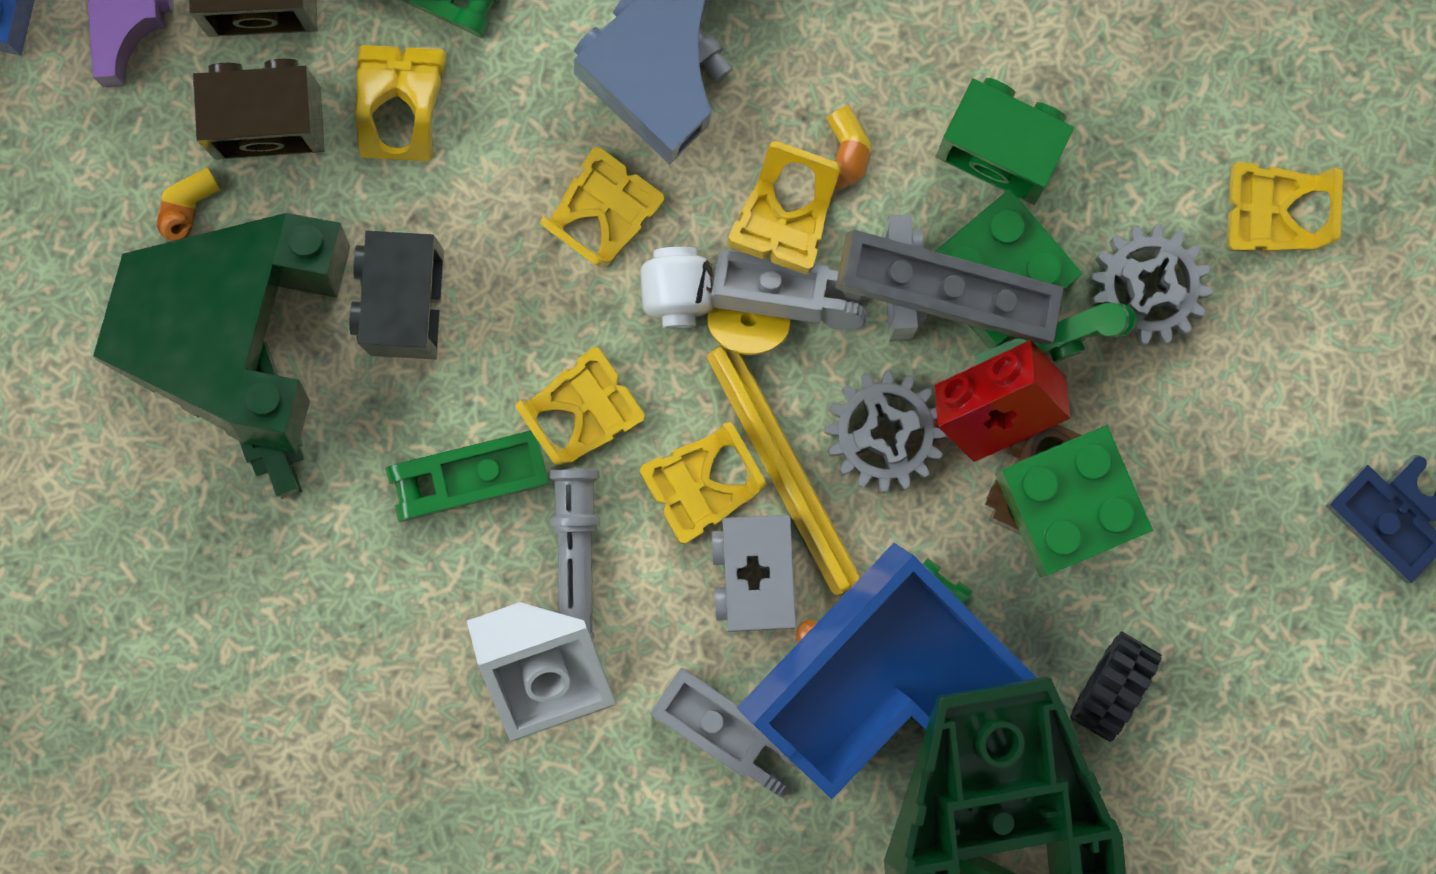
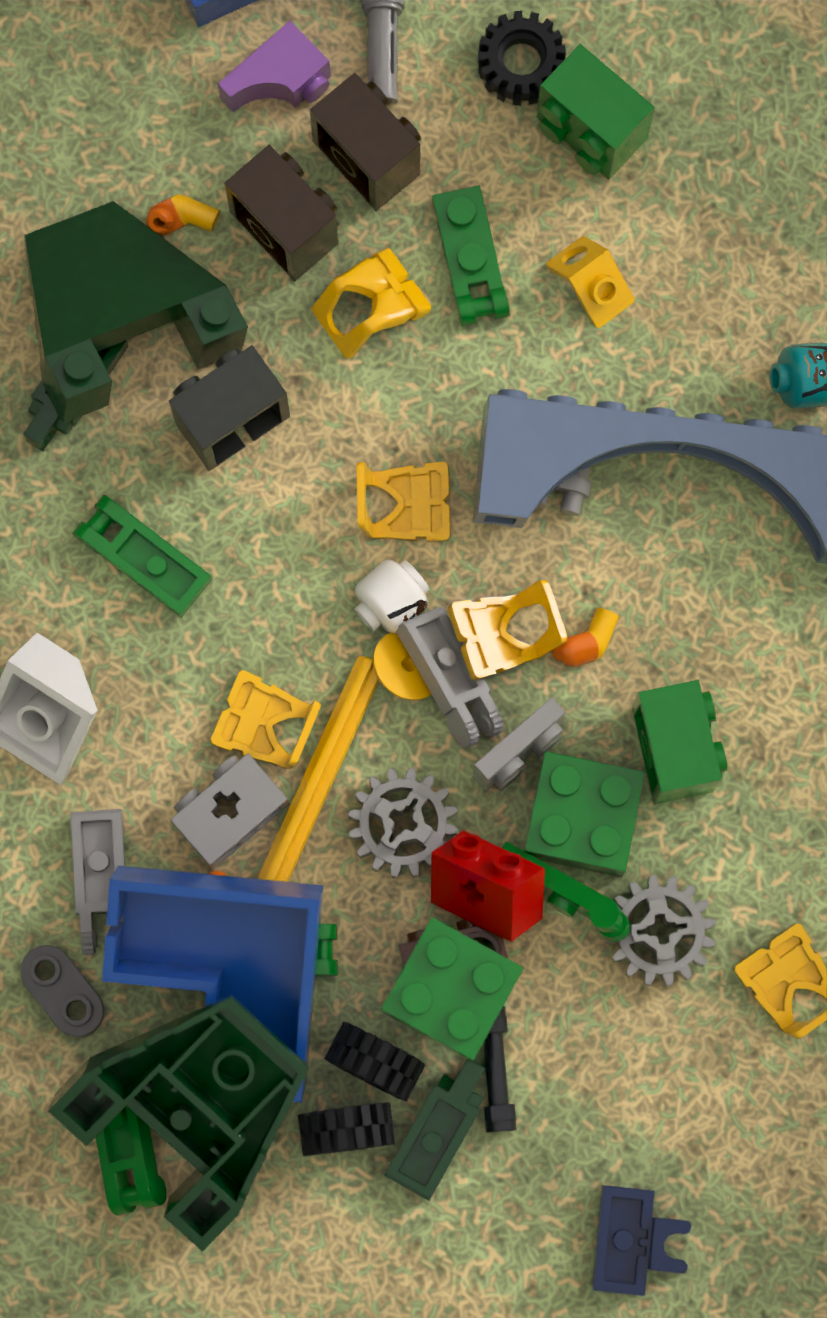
camera: 50 degrees right, 5 degrees down
(574, 522) = (164, 656): light grey pin -> none
(595, 399) = (266, 601): yellow piece -> none
(800, 839) = (62, 990): none -> dark grey plate
(949, 287) = (533, 778): flat silver plate -> none
(1076, 617) = (375, 1061): none -> black tyre
(1175, 610) = (437, 1132): none -> dark green hinge
(1199, 545) = (499, 1113): none -> black bar

